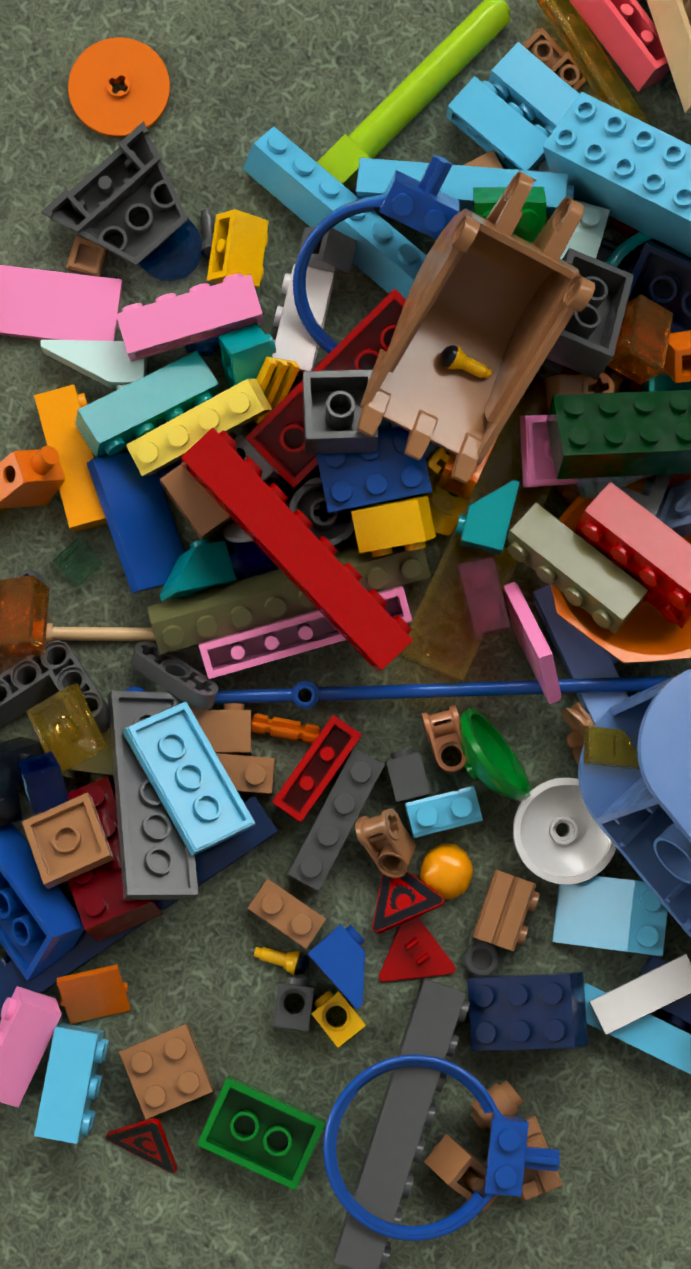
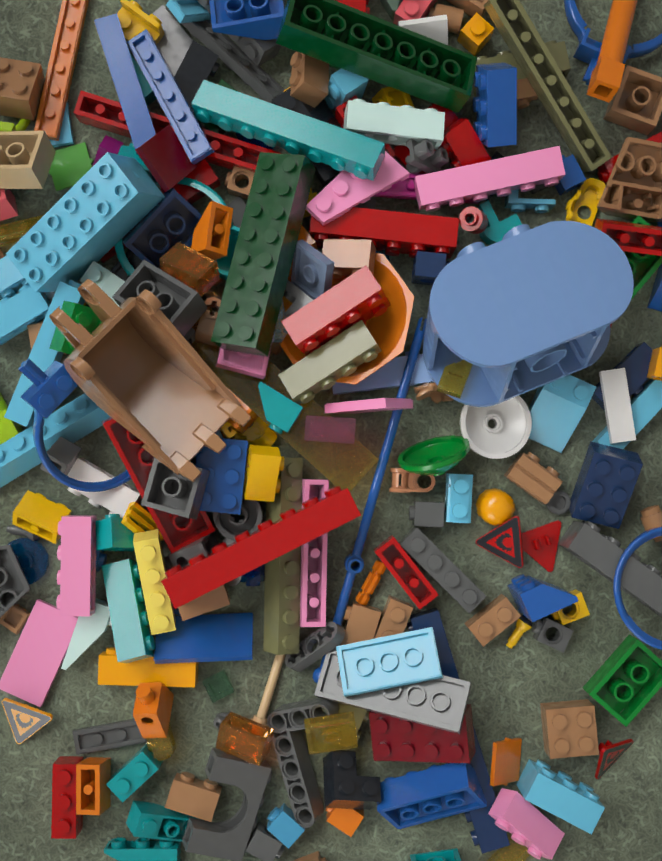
camera: 75 degrees left, 5 degrees up
(42, 782) = (362, 759): clear blue brick -> none
(67, 840) = (406, 756): medium nougat plate -> none
(199, 569) = (249, 609): teal slope -> none
(386, 842) = (467, 541): medium nougat piece -> none
(454, 358) = (164, 398): yellow piece -> none

